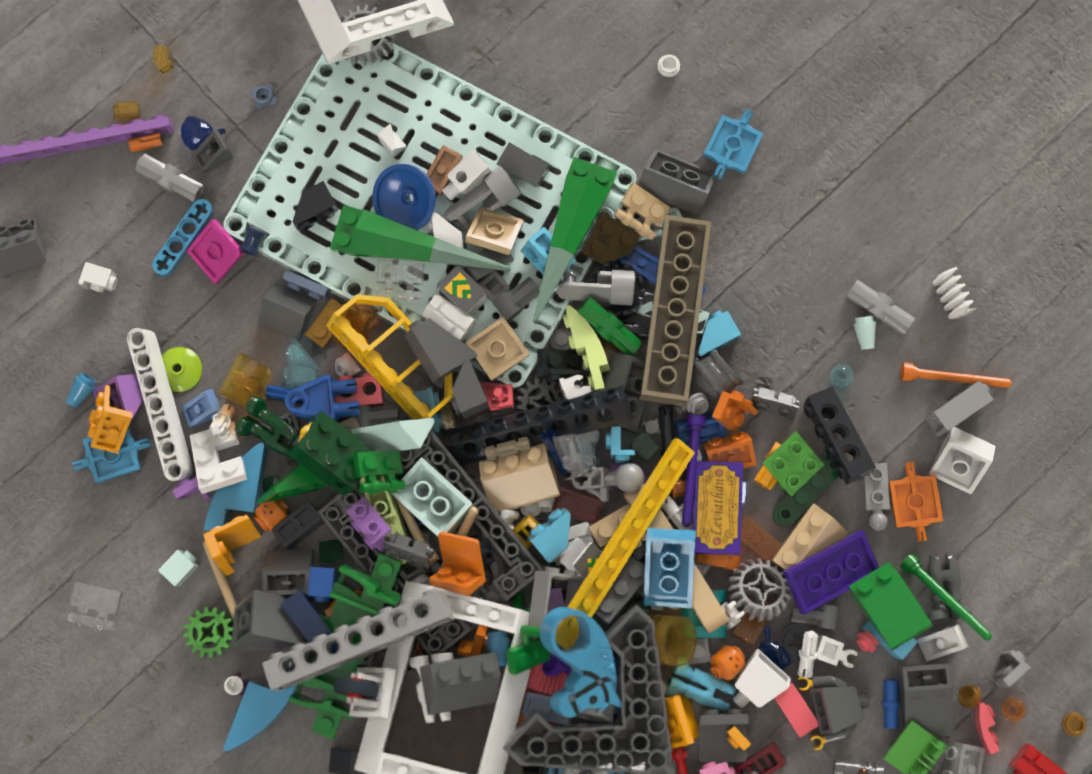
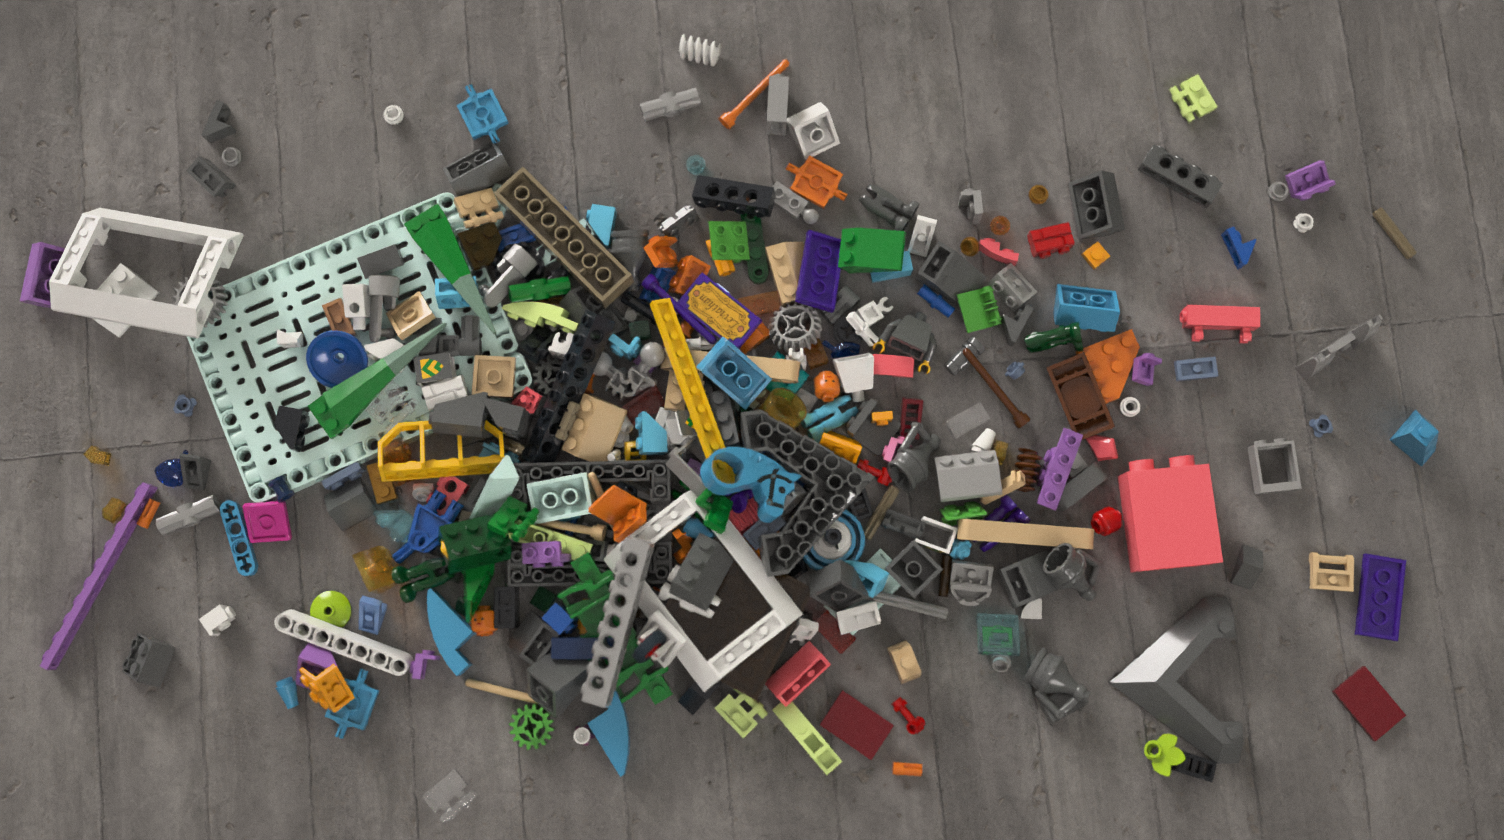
camera: 55 degrees left, 0 degrees up
(179, 567) = (470, 714): light aqua brick -> none
(209, 470) = (401, 633): white plate -> none
(222, 420) = (390, 605): white axle -> none
(226, 538) = (477, 662): light orange bracket -> none
(398, 548) = (576, 546): dark grey hinge -> none
(552, 451) = (595, 389): clear blue pin -> none
(576, 453) = (607, 376): clear slope -> none
(697, 404) = (639, 271): light grey plate -> none
(865, 331) = (678, 126): light aqua cone -> none
(867, 641) = (883, 284): coral plate -> none
(913, 566) = (856, 216): green piece -> none

